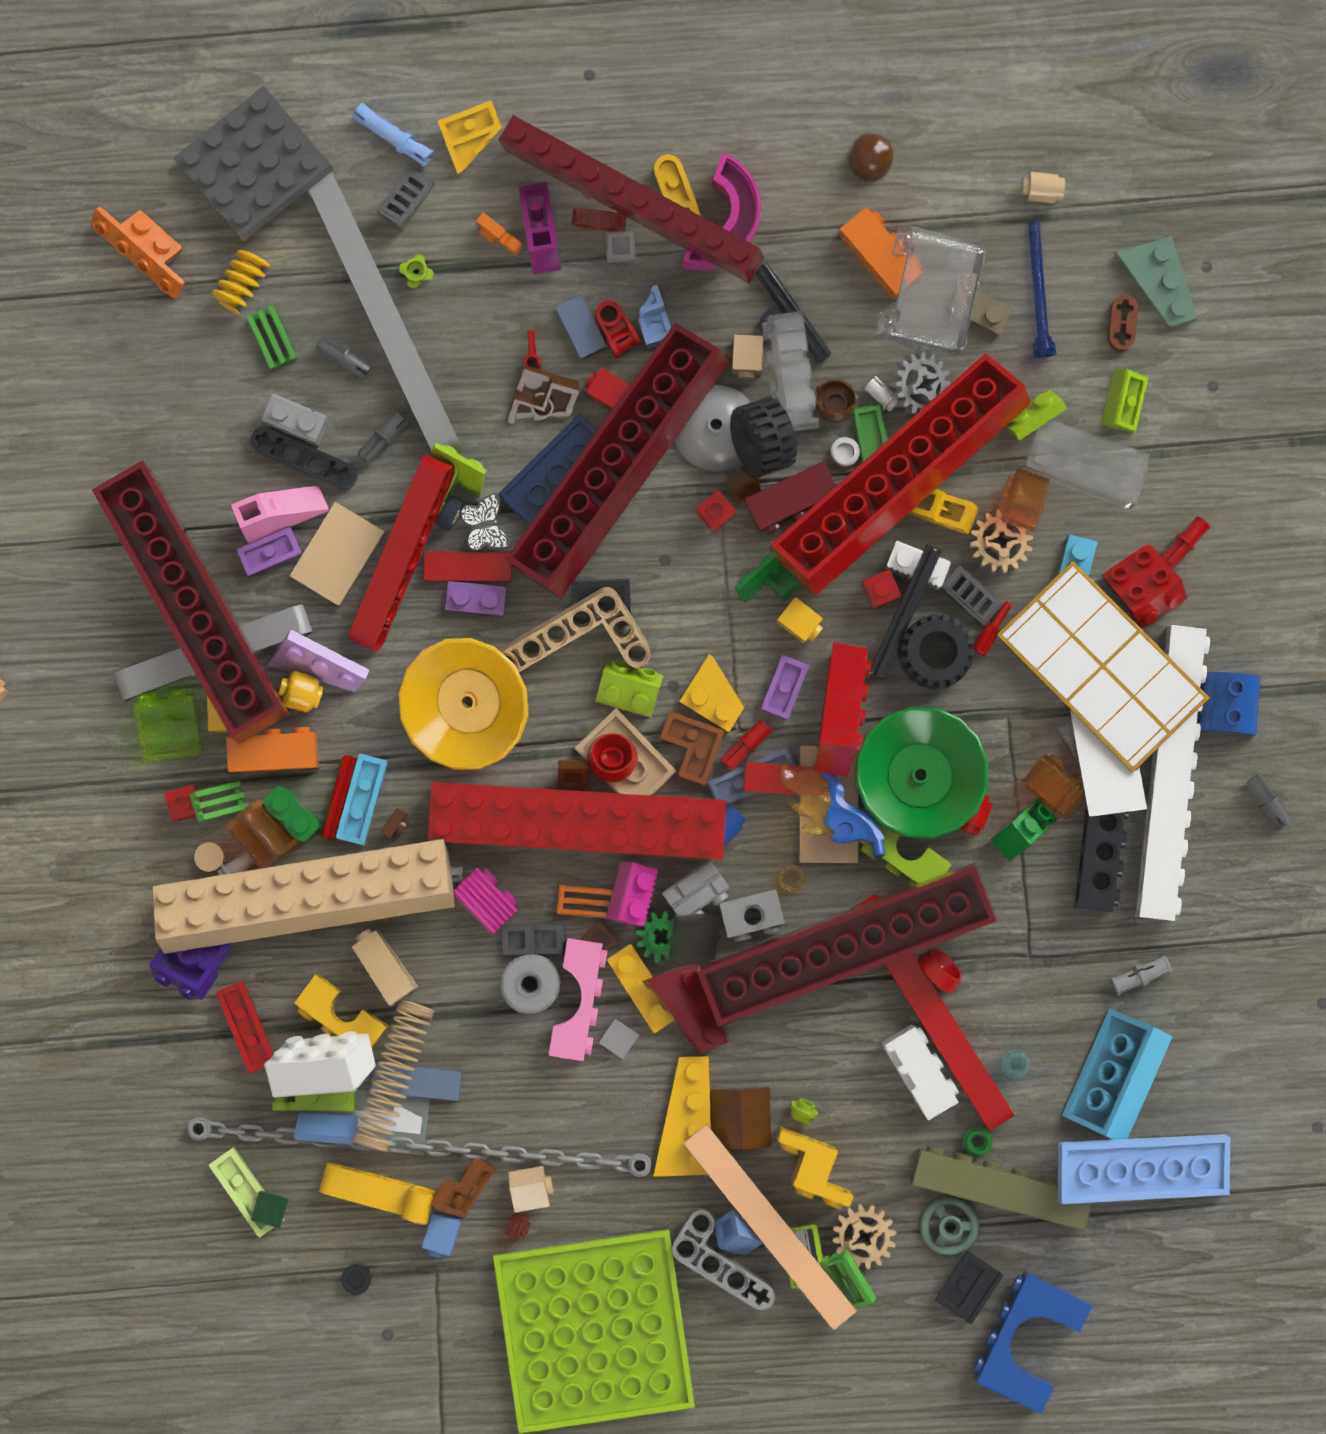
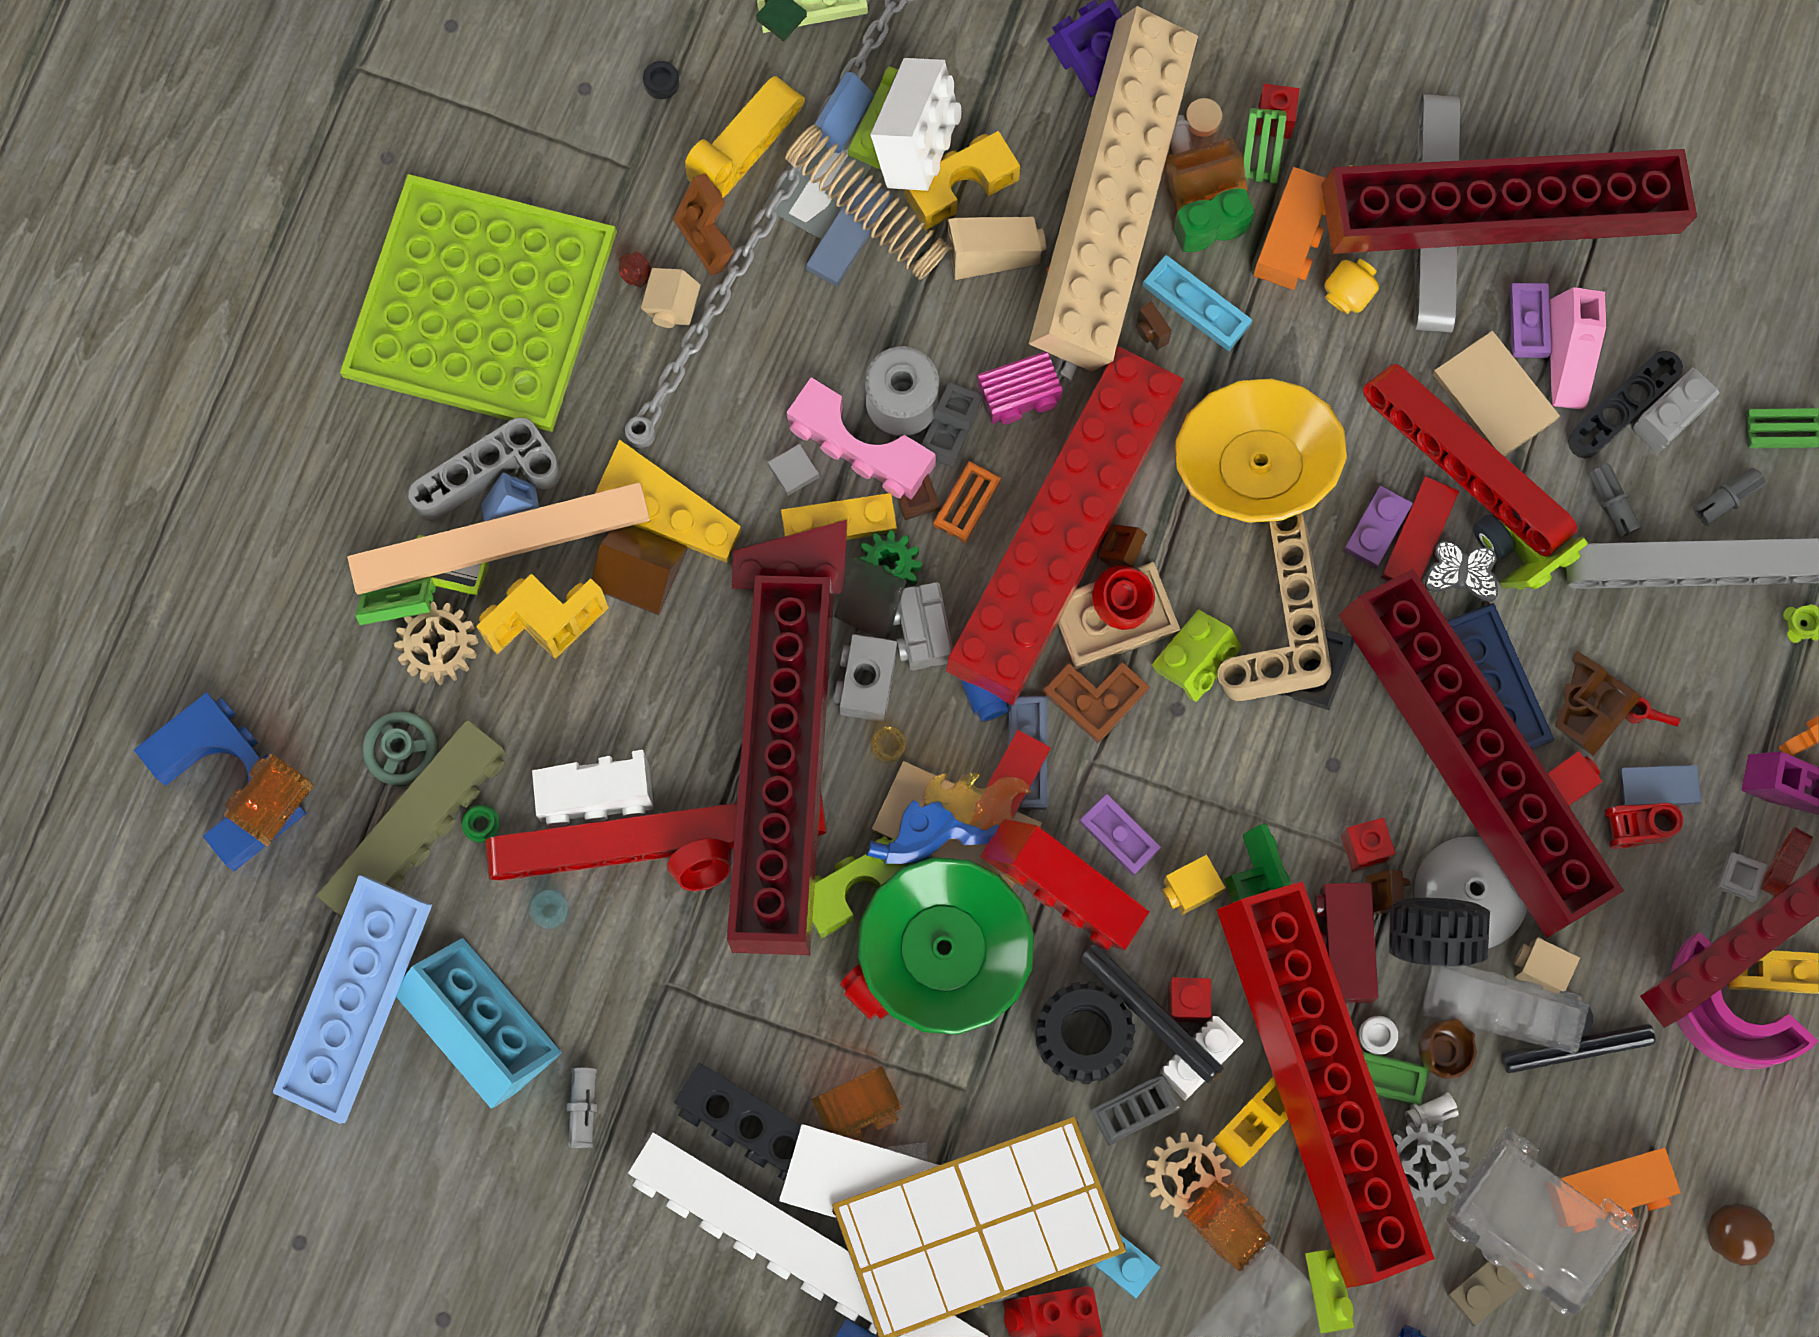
camera: 115 degrees right, 10 degrees down
(167, 725) = (1373, 127): clear neon green plate -> none
(245, 1026) = (999, 76): red plate -> none
(309, 657) = (1390, 304): lavender wing -> none
(338, 797) = (1211, 279): red axle -> none
(441, 1234) = (664, 184): medium blue brick -> none
(632, 894) = (953, 549): dark pink brick -> none
(653, 319) = (1639, 877): light blue slope -> none
(713, 696) = (1145, 747): yellow wing -> none
(746, 745) = (1070, 760): red axle -> none
(803, 1111) = (611, 637): lime plate -> none
(969, 1287) = (319, 737): black plate -> none
(990, 631) = (1076, 1107): red axle -> none
(1023, 829) = (822, 1043): green slope -> none
(1036, 1296) = (267, 798): none -> clear orange brick

